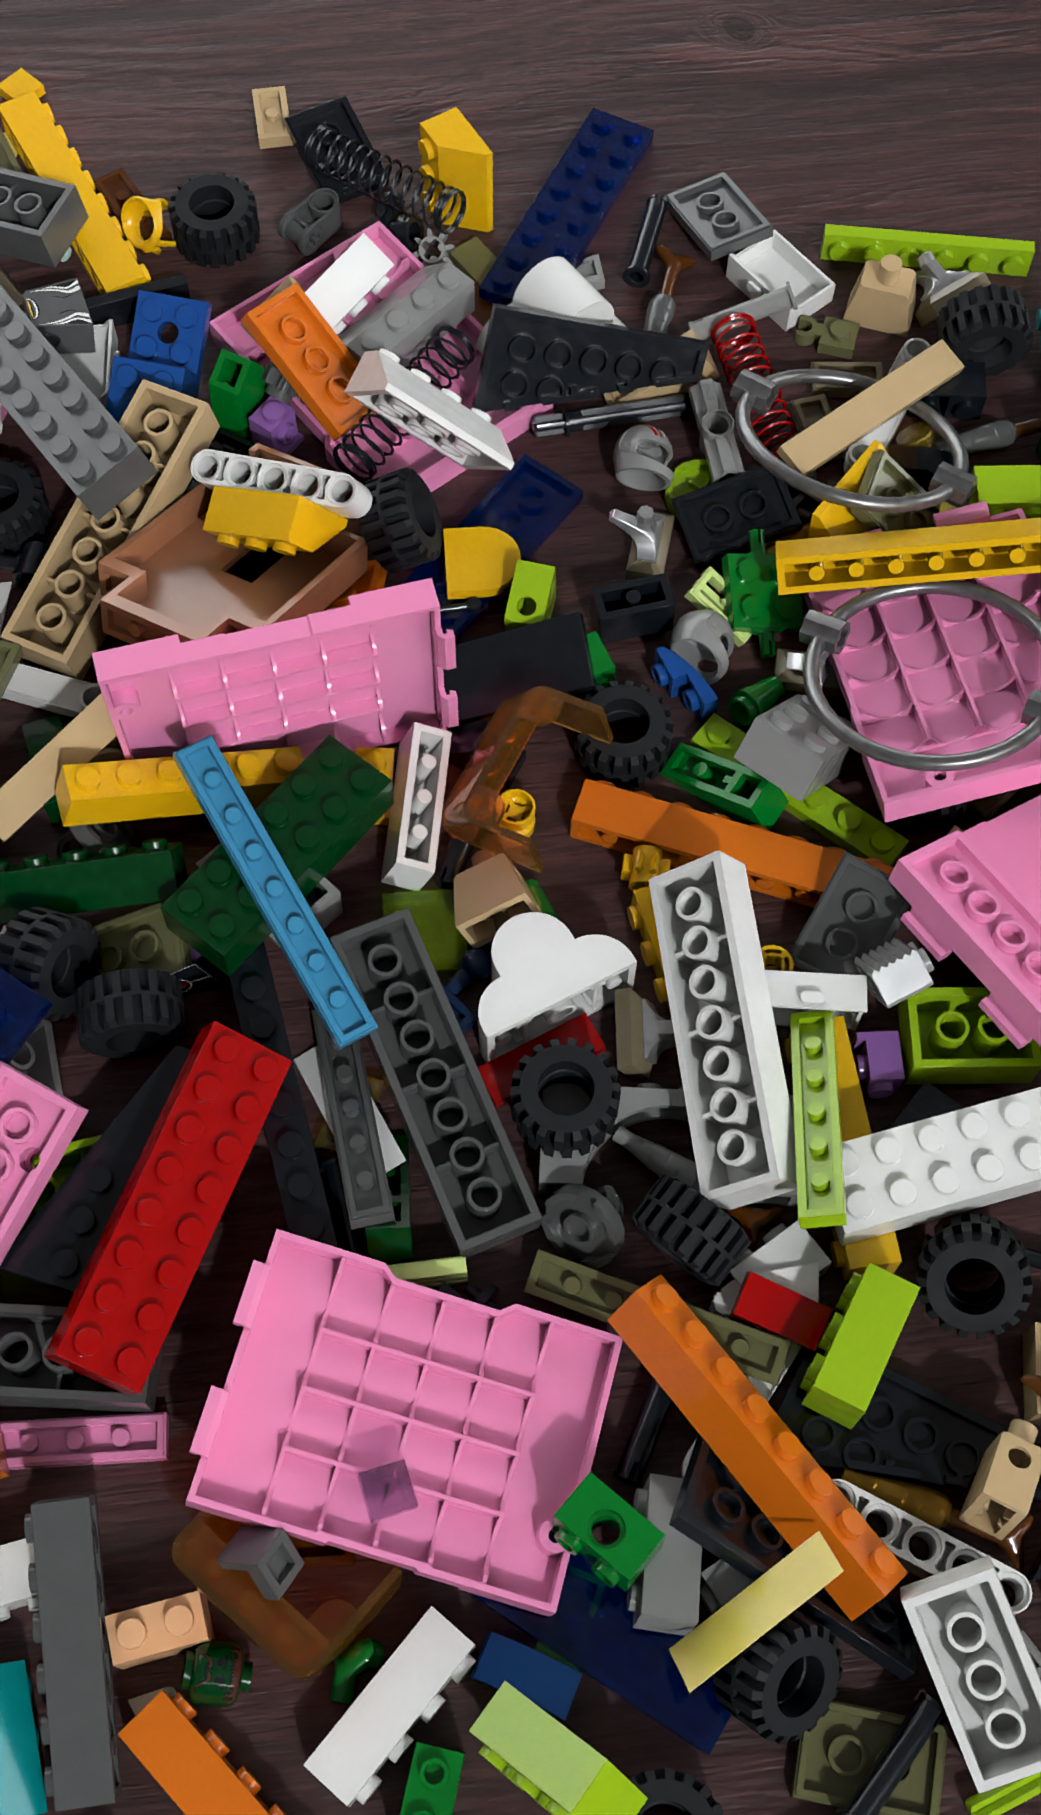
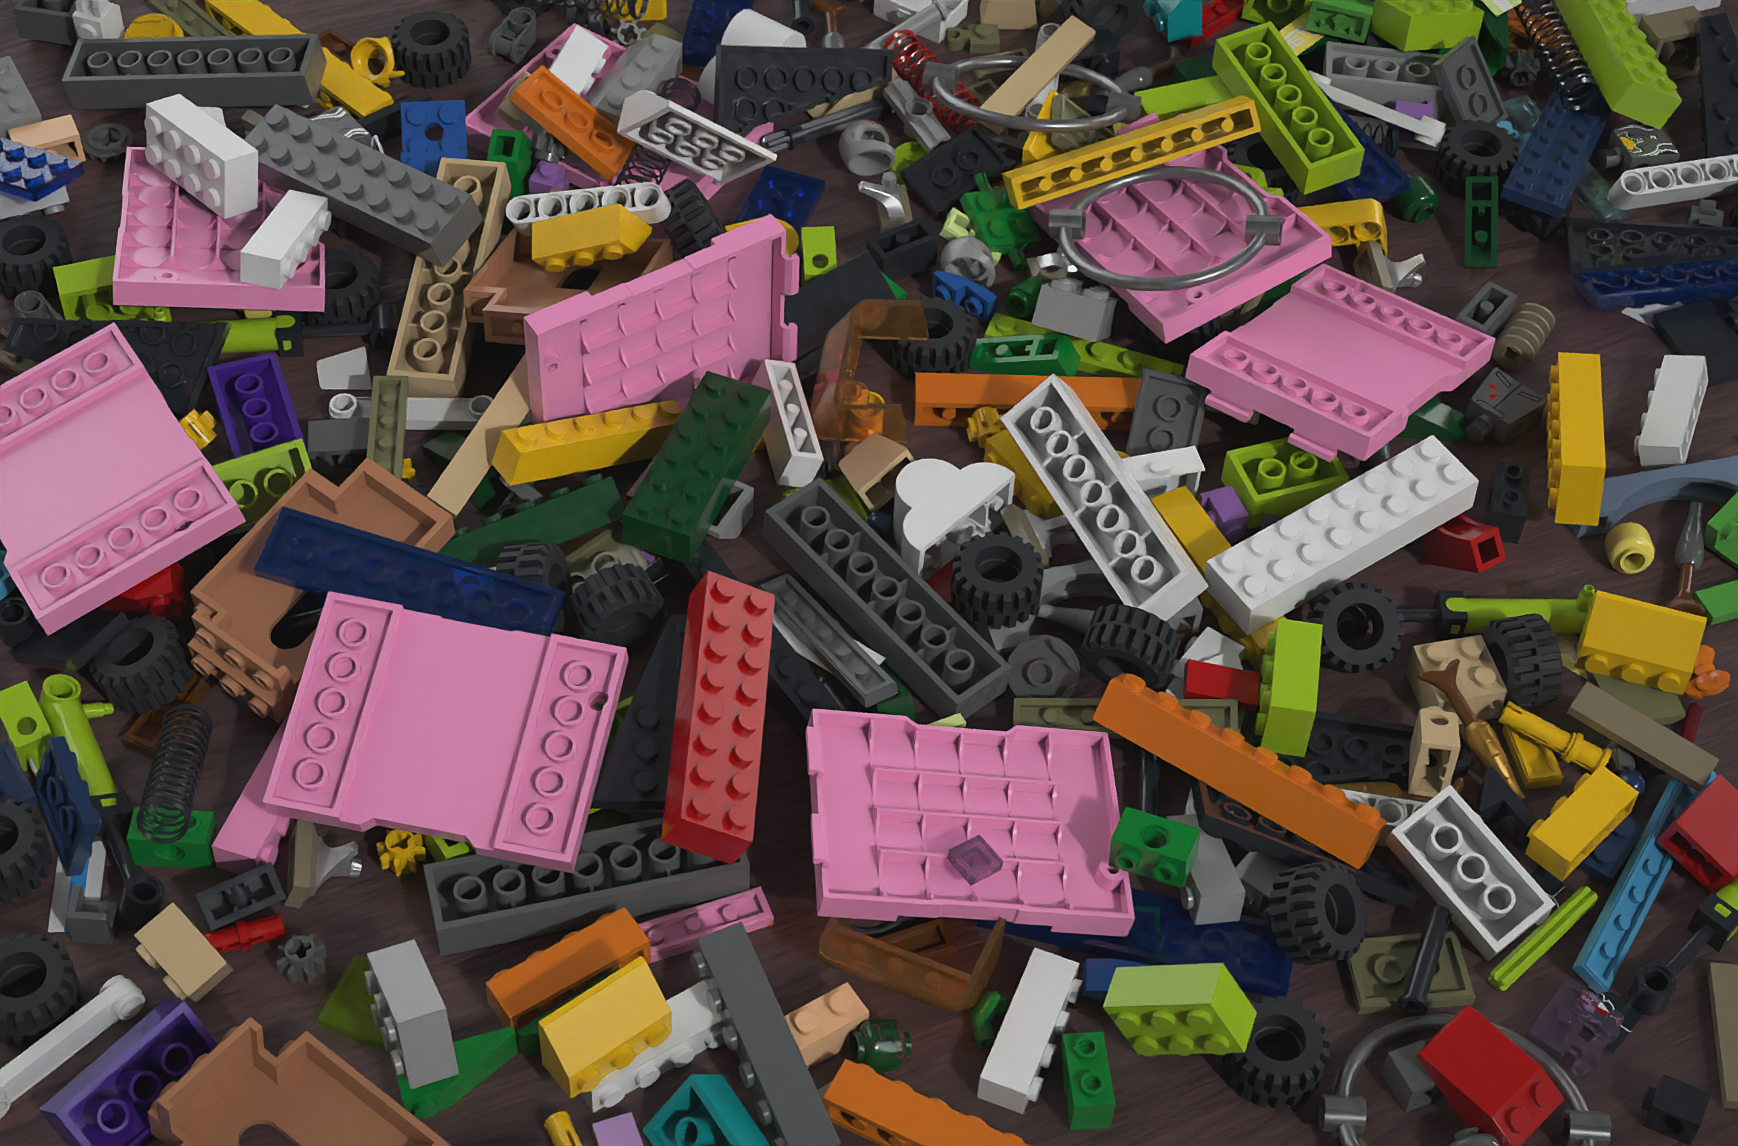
camera: 20 degrees left, 15 degrees down
(266, 1556) = (897, 927): dark grey panel -> none
(275, 892) = (714, 480): dark azure tile -> none
(755, 1611) = (1286, 866): light yellow sticker -> none
(817, 1120) = (1200, 538): lime plate -> none
(895, 971) = (1217, 437): brick -> none

